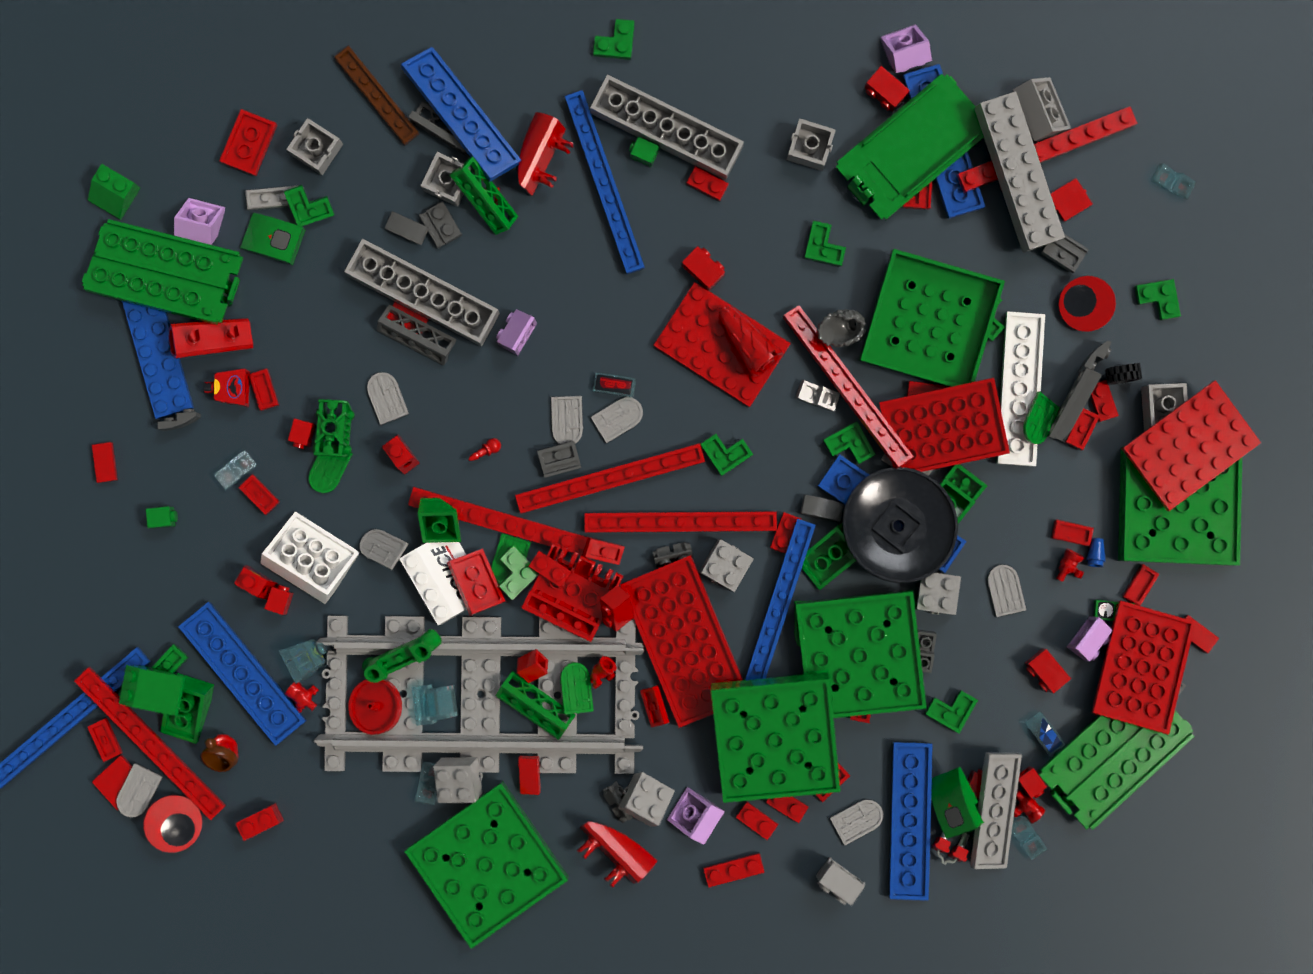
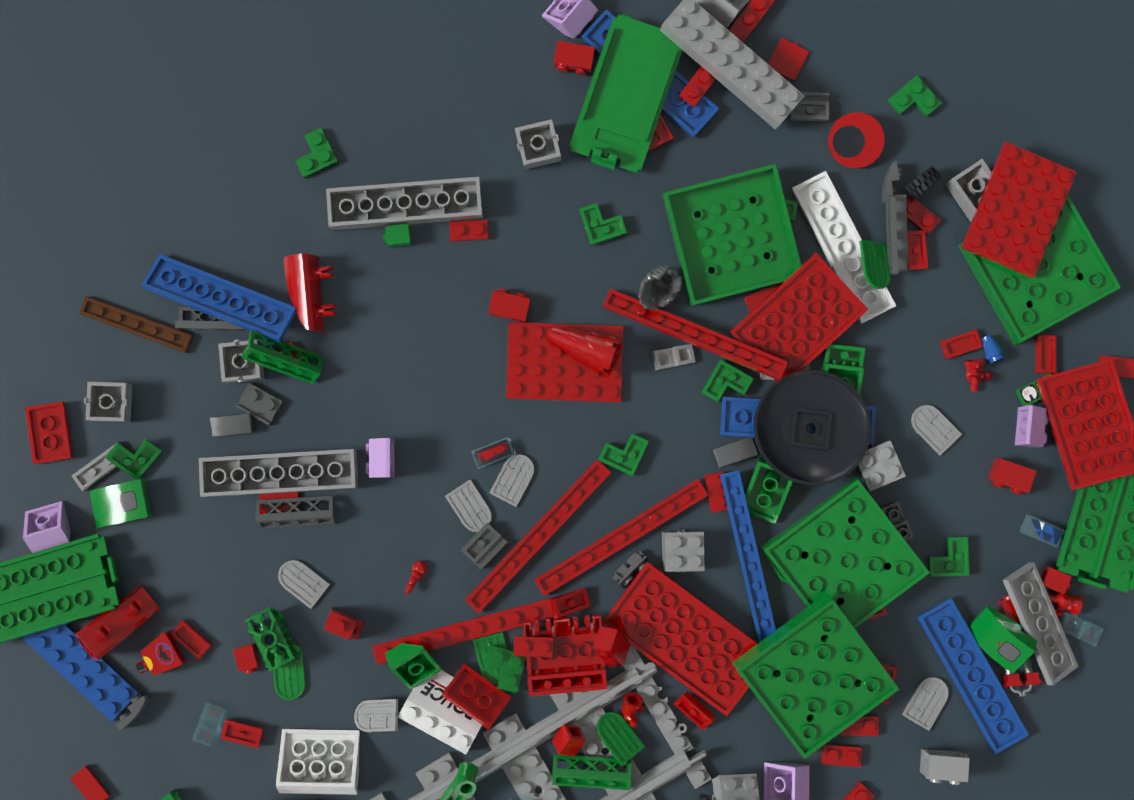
camera: 25 degrees left, 0 degrees up
(604, 182) = (379, 282): blue plate -> none

